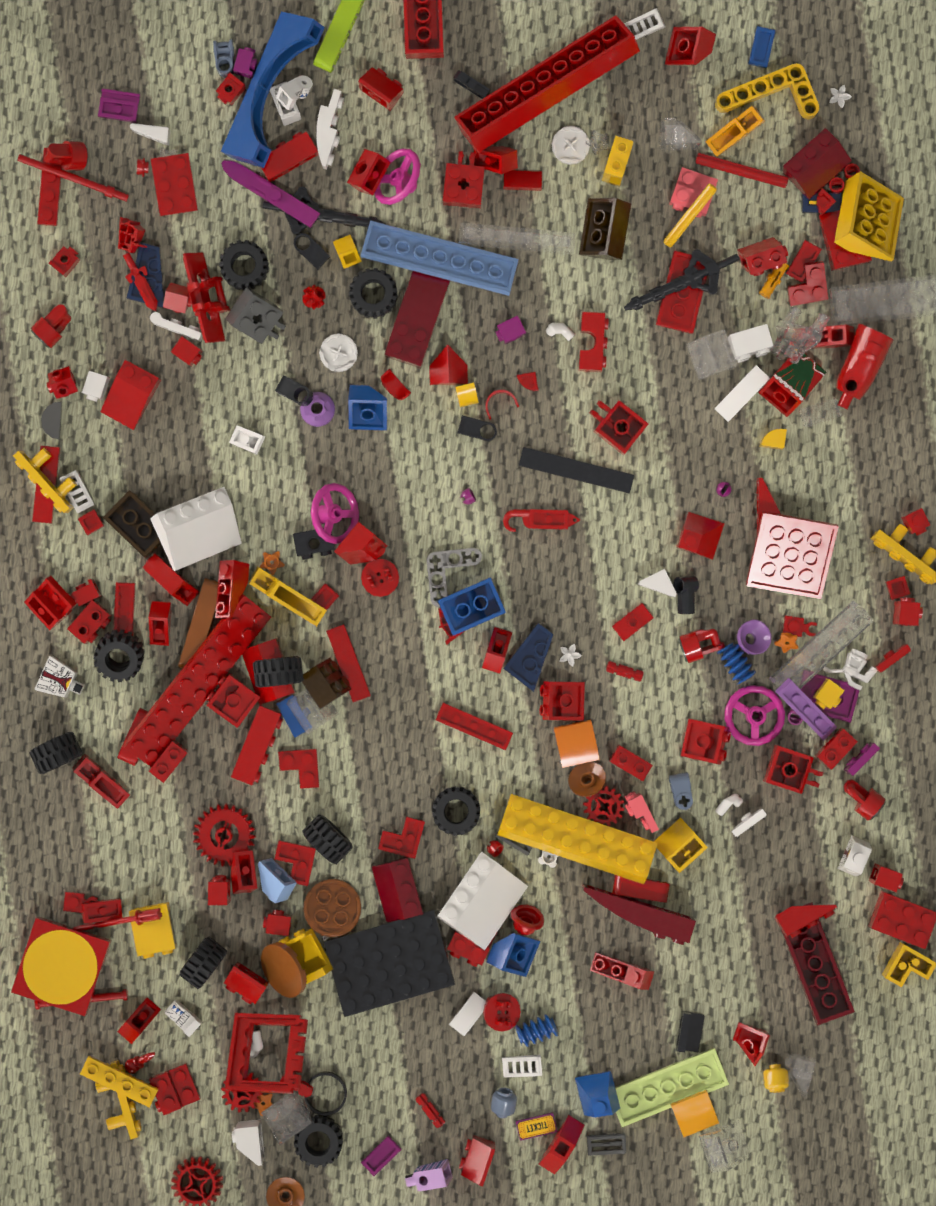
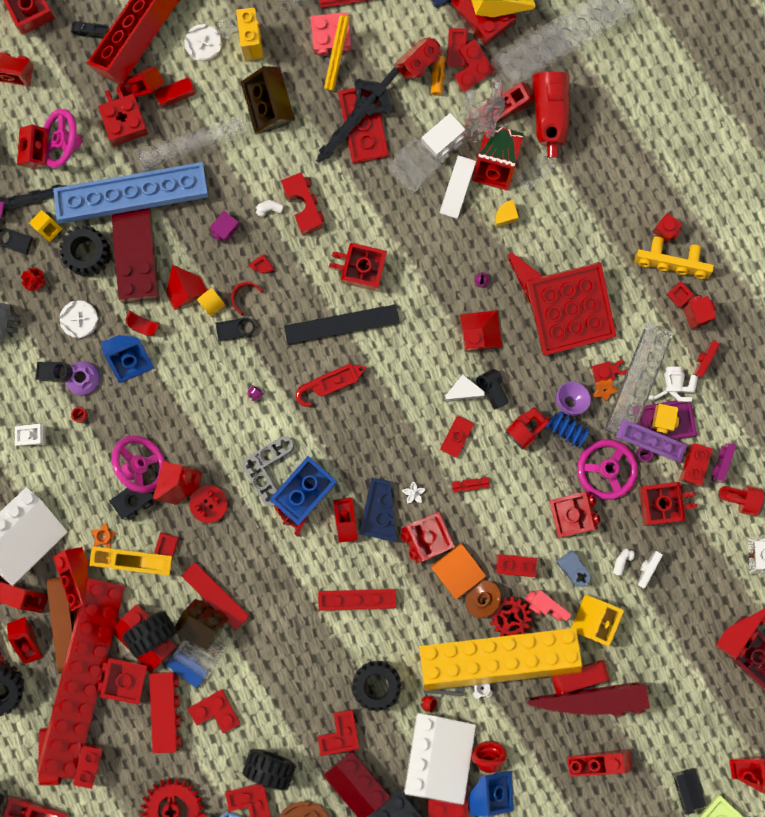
camera: 20 degrees left, 5 degrees down
(299, 438) = (78, 412): none -> red hinge

